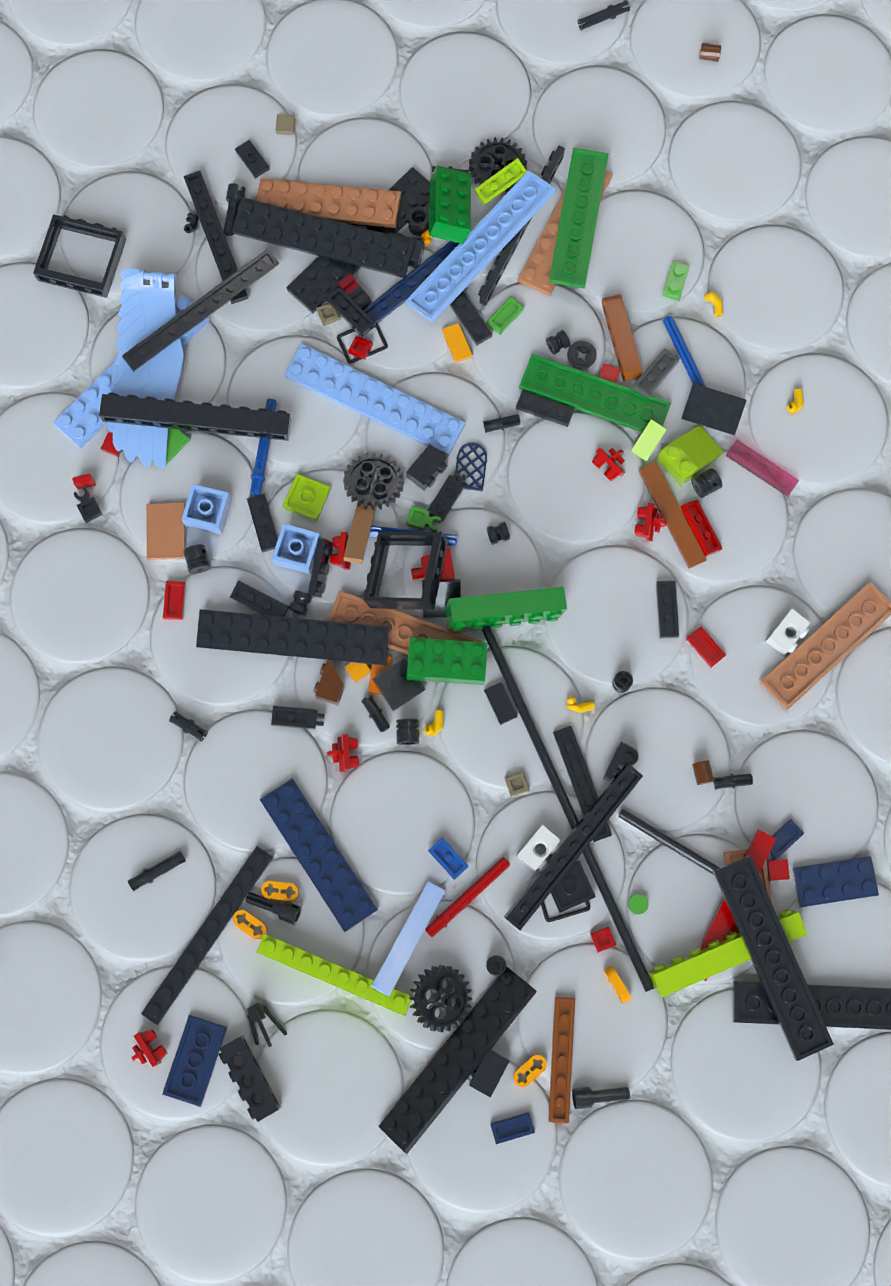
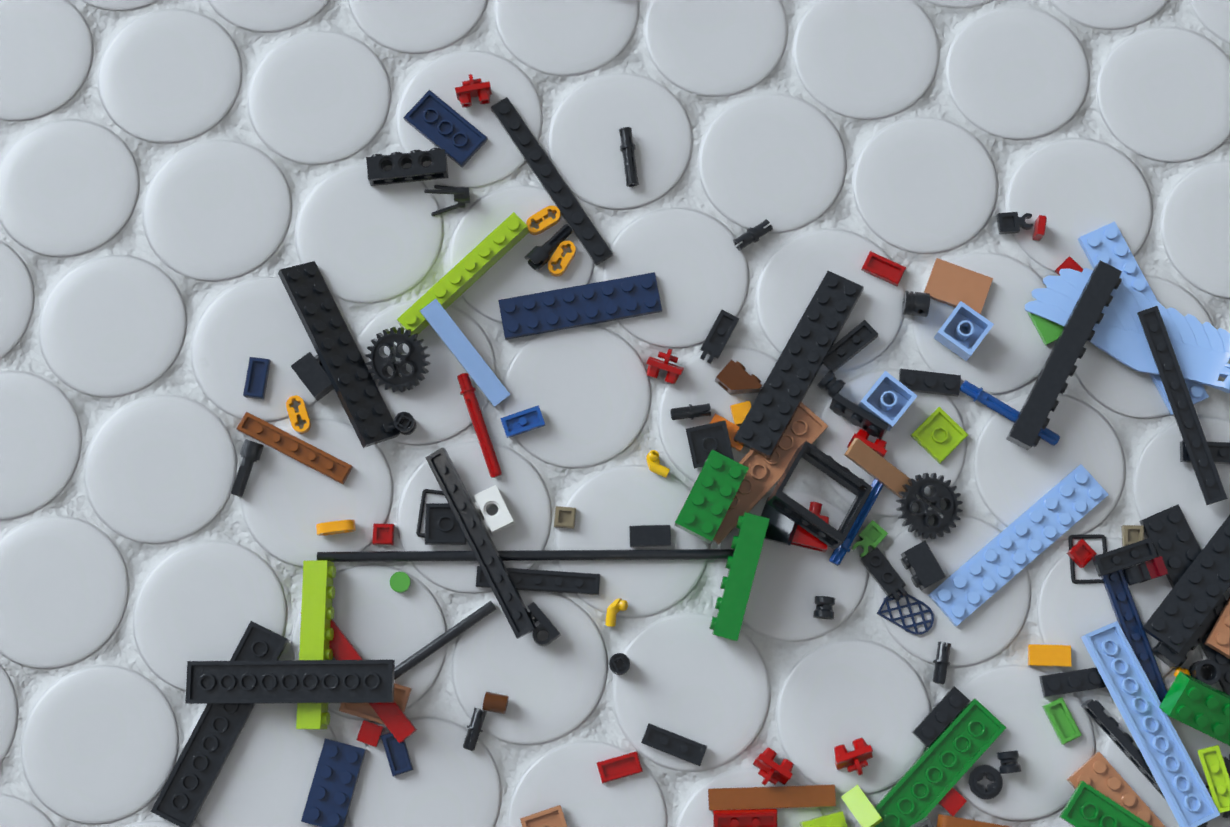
camera: 115 degrees right, 0 degrees up
(407, 732) = (659, 433): black piece -> none

